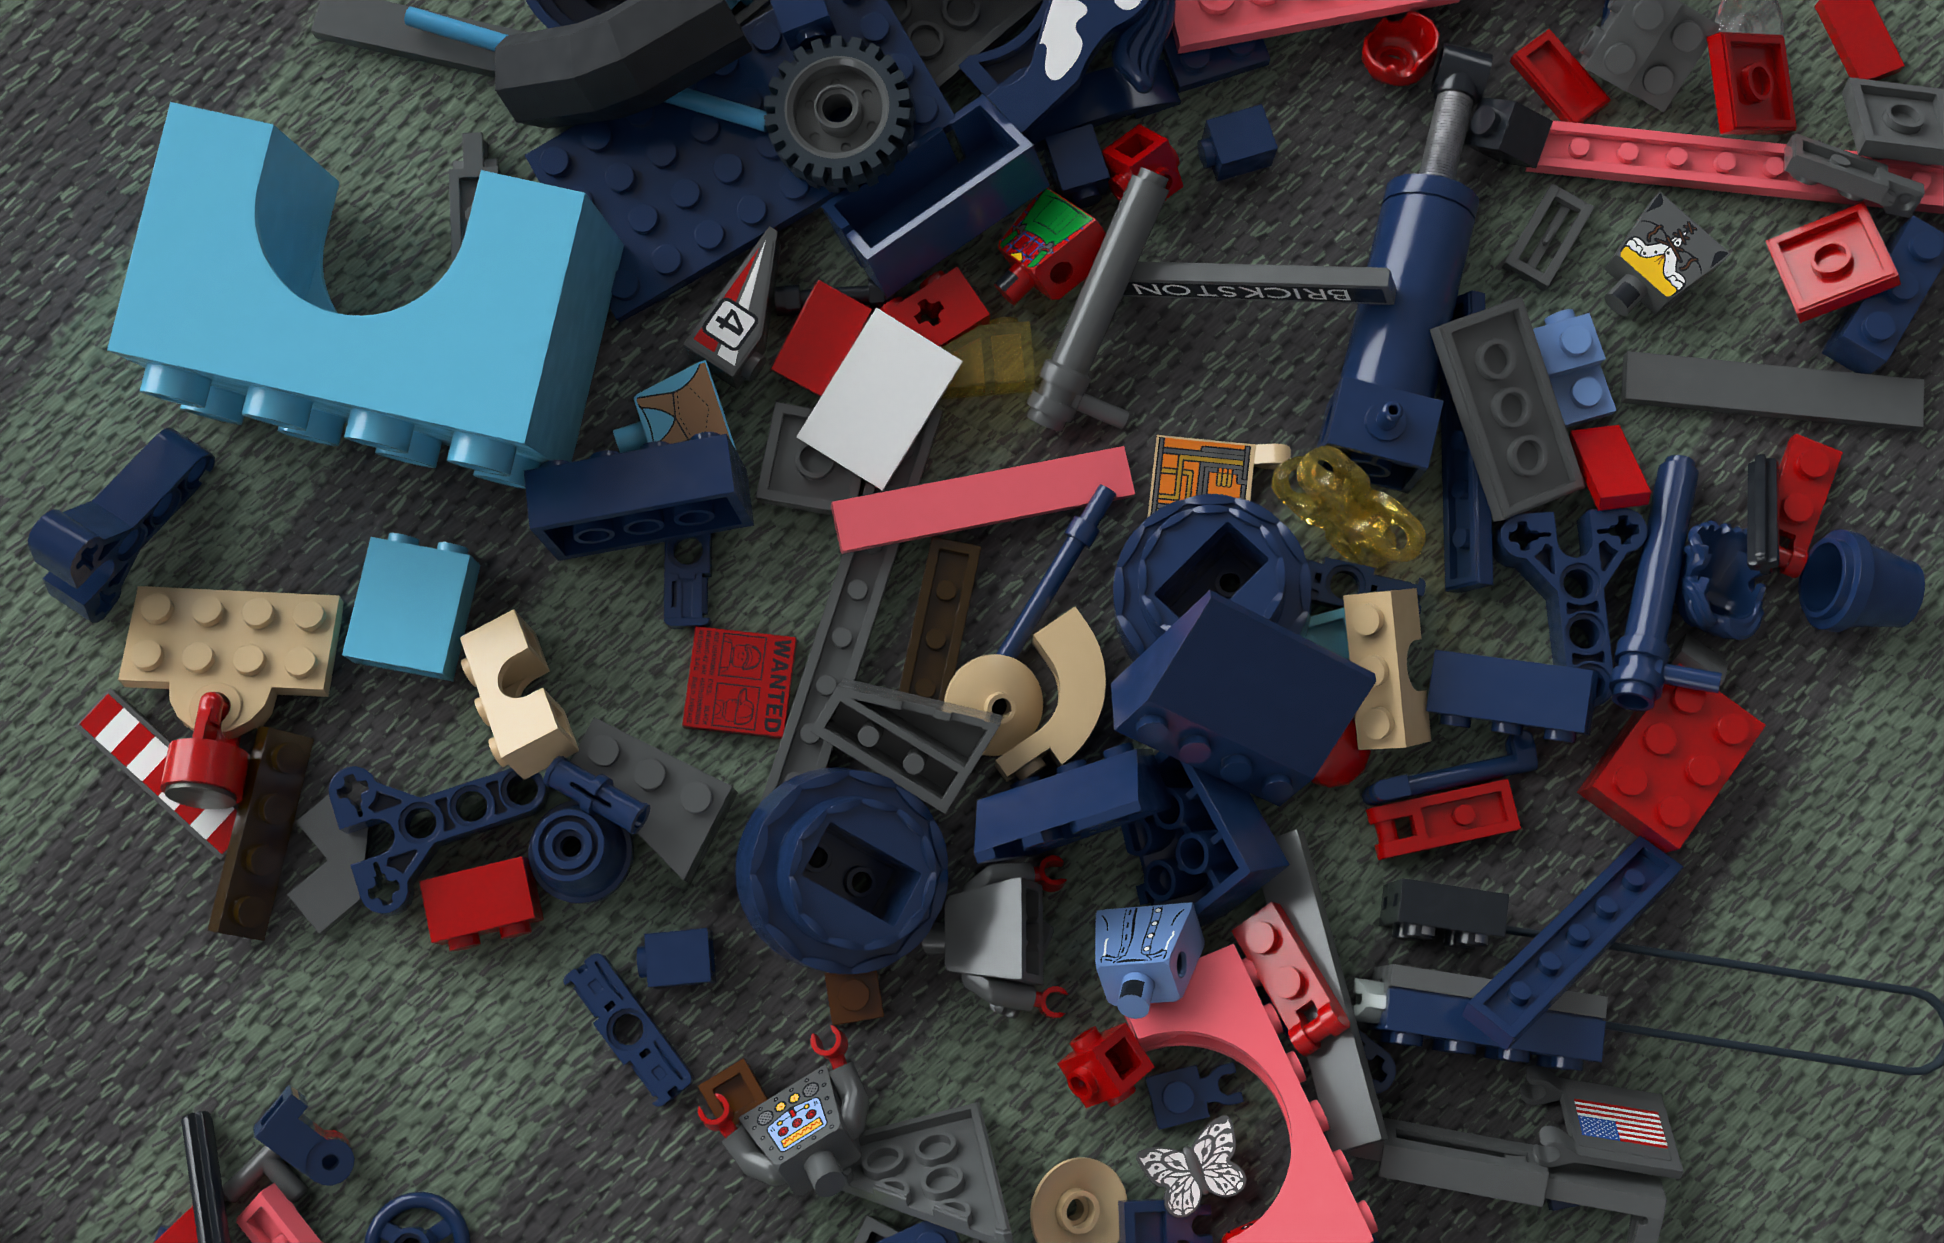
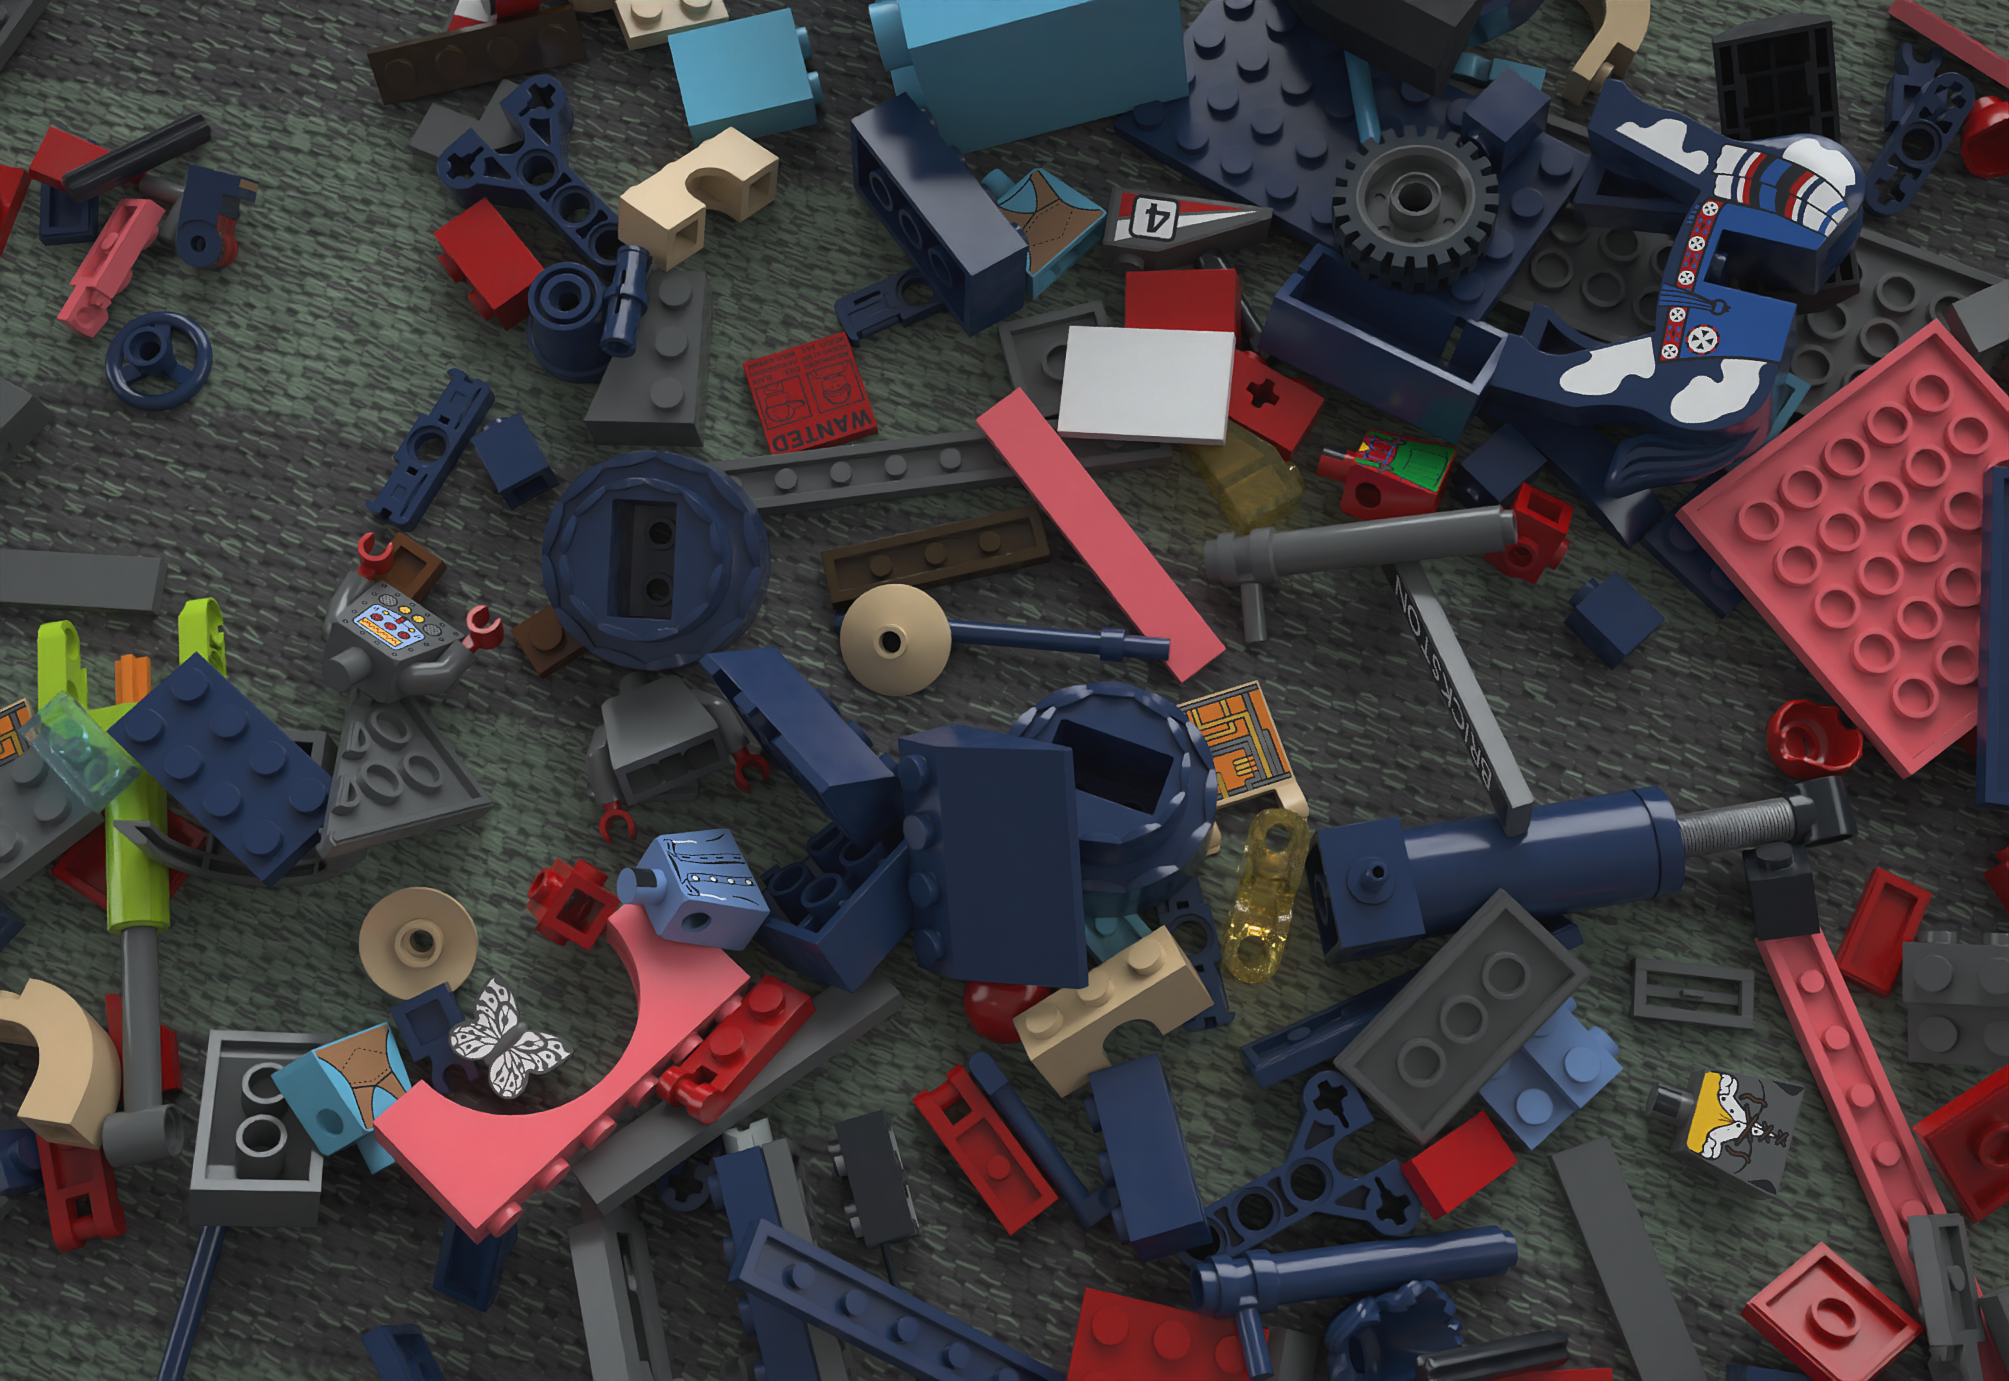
camera: 70 degrees right, 5 degrees down
(908, 737) = (812, 559): dark grey wedge -> none
(1080, 677) = (973, 698): tan arch -> none
(1183, 1096) = (582, 1003): dark blue plate -> none

